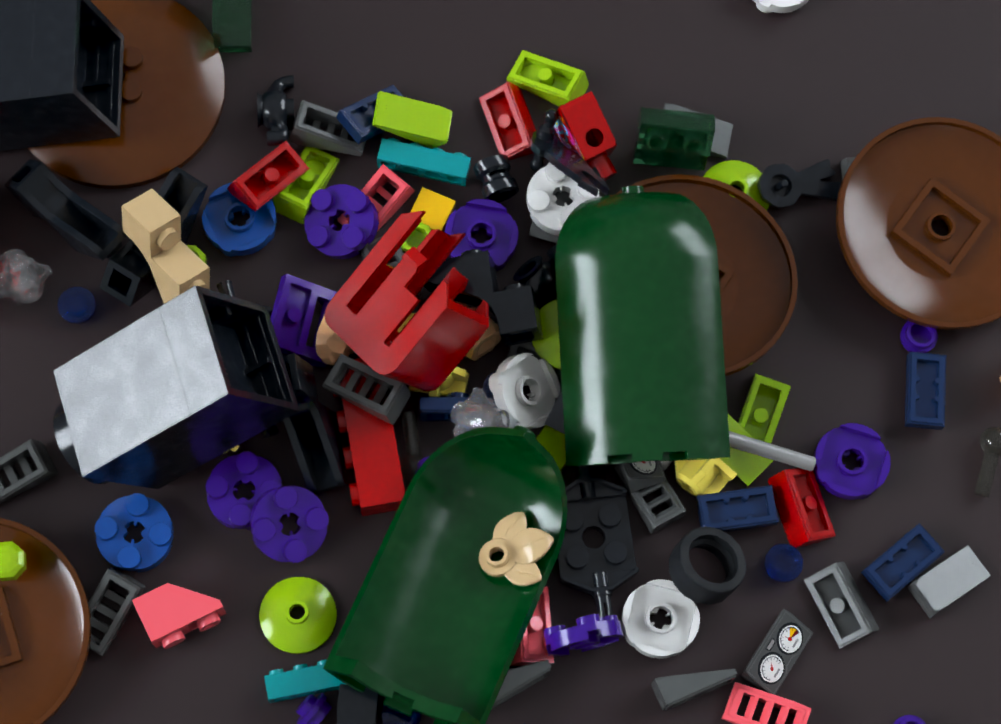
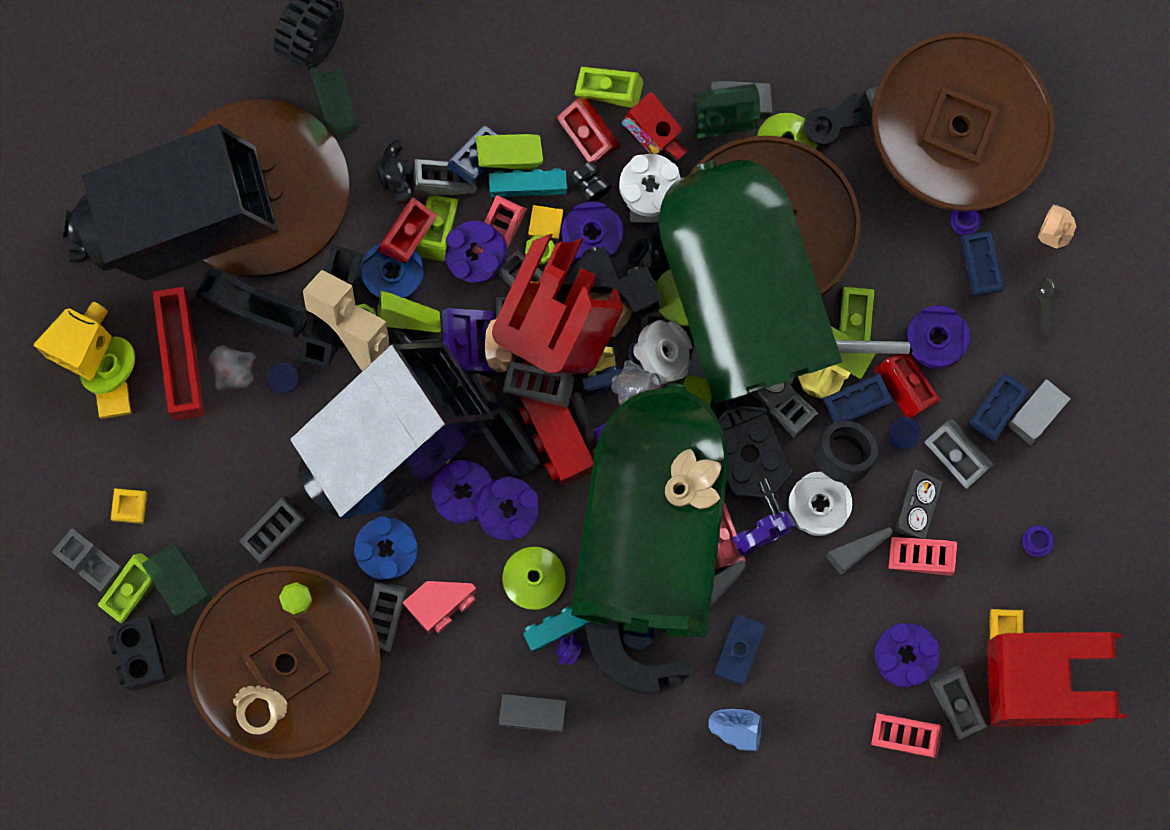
camera: 10 degrees left, 5 degrees up
(240, 270) = (407, 314): none -> lime slope
(563, 158) = (642, 152): black piece -> none

